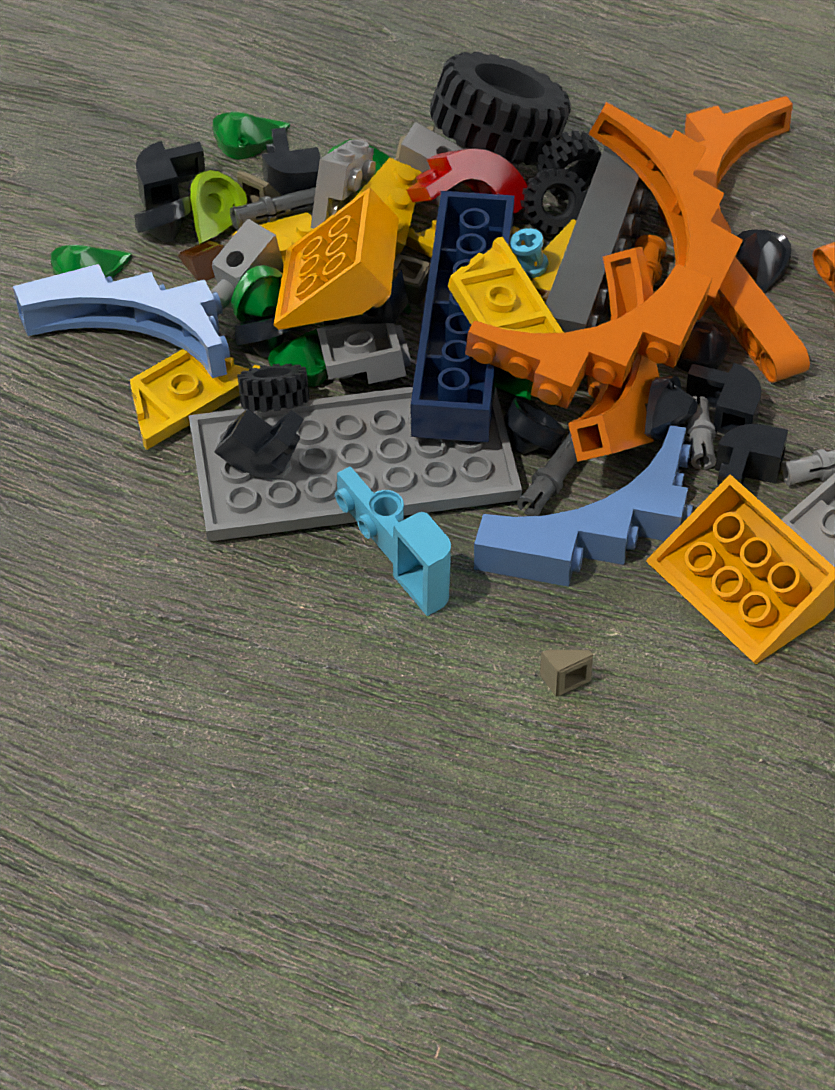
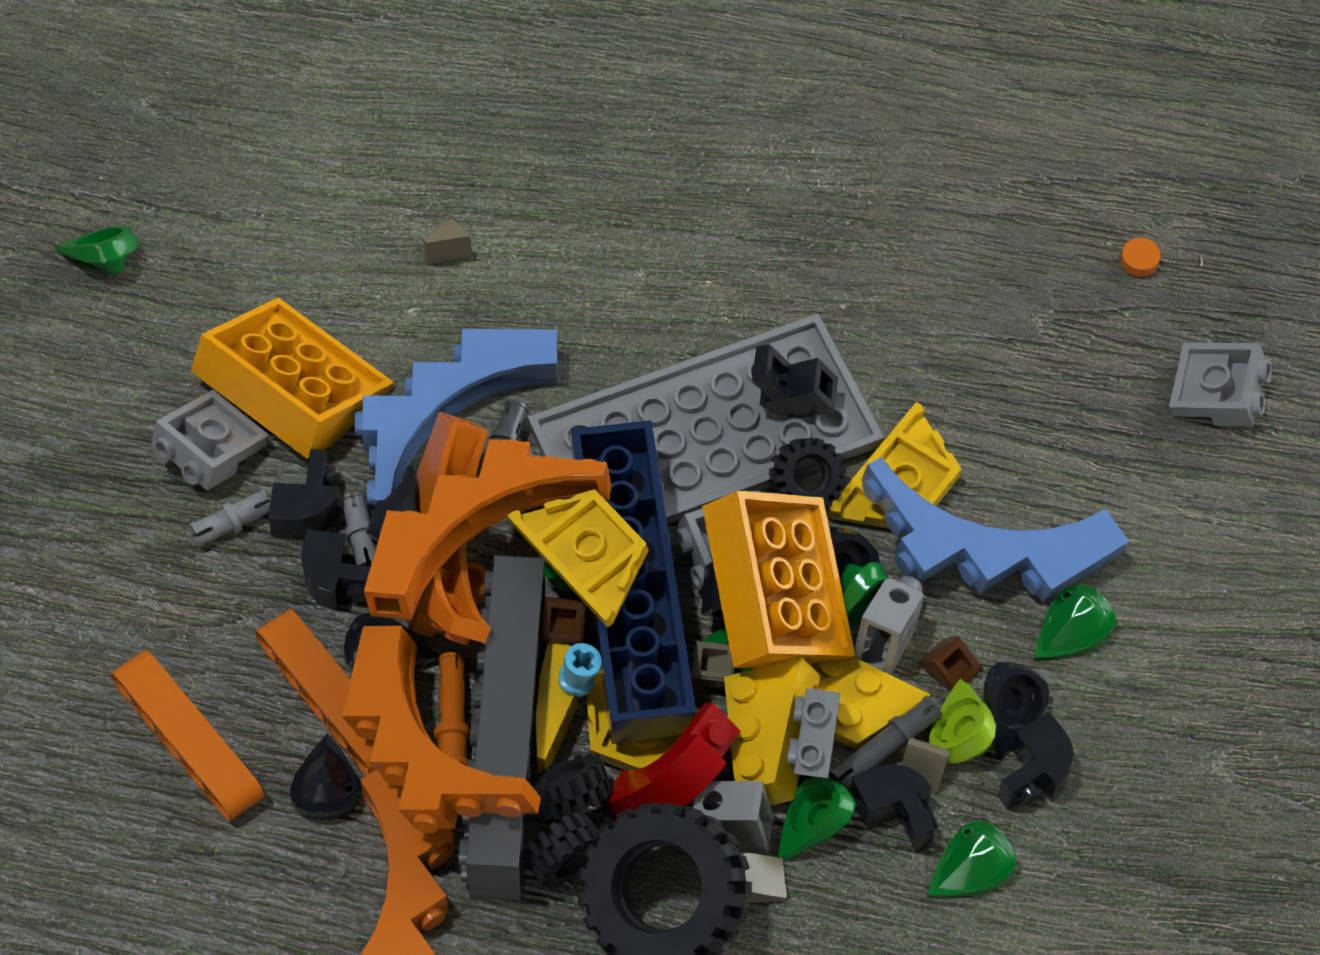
camera: 165 degrees right, 10 degrees up
(413, 545) = (609, 310): medium azure plate -> none

